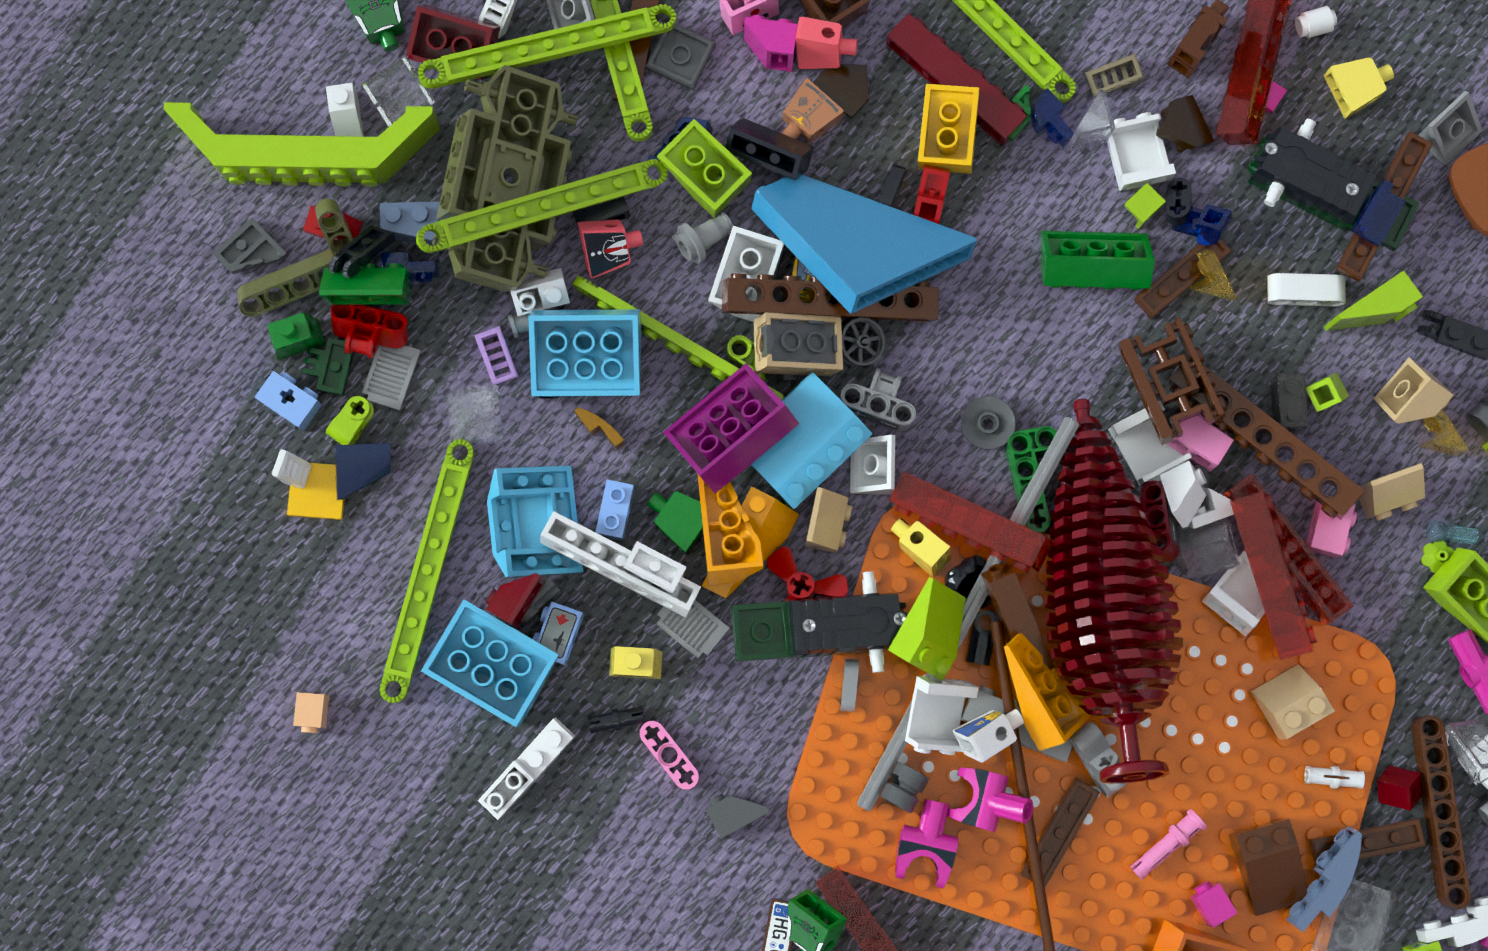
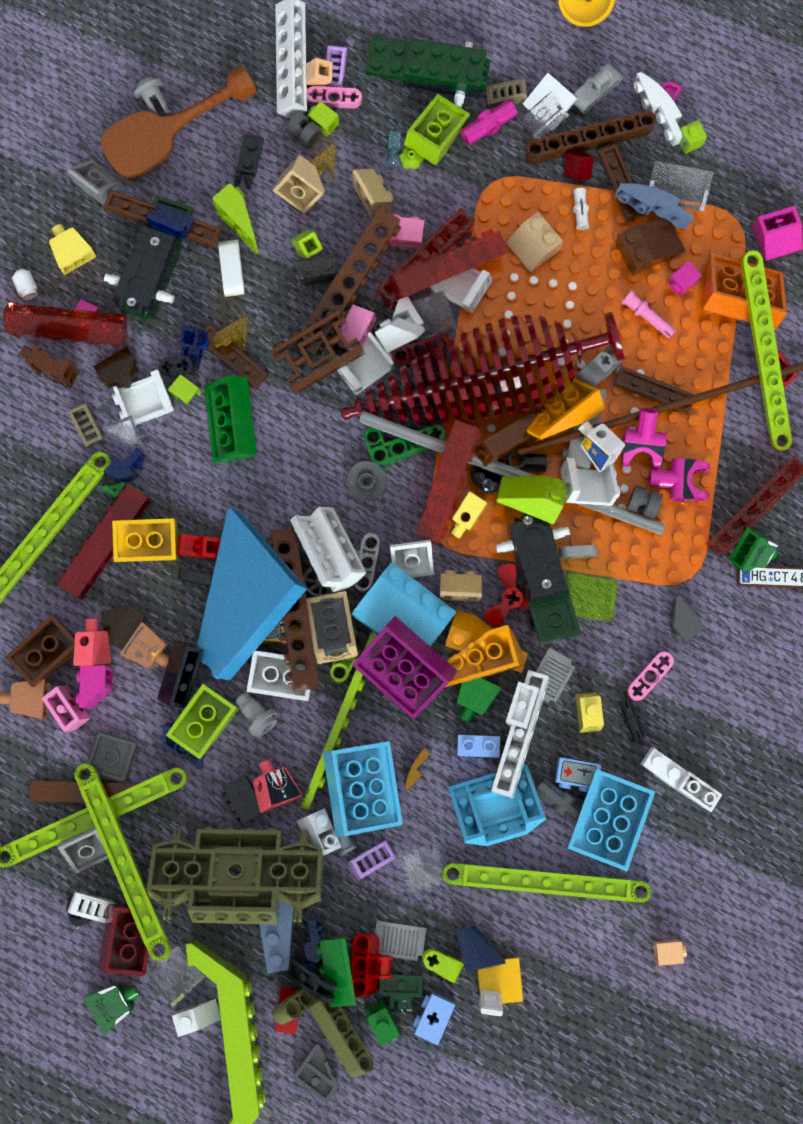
camera: 100 degrees left, 0 degrees up
(514, 598) = (562, 810): dark red slope -> none
(541, 206) = (257, 842): lime plate -> none
(786, 691) = (592, 596): none -> clear neon green panel
(902, 355) = (329, 549): none -> white brick

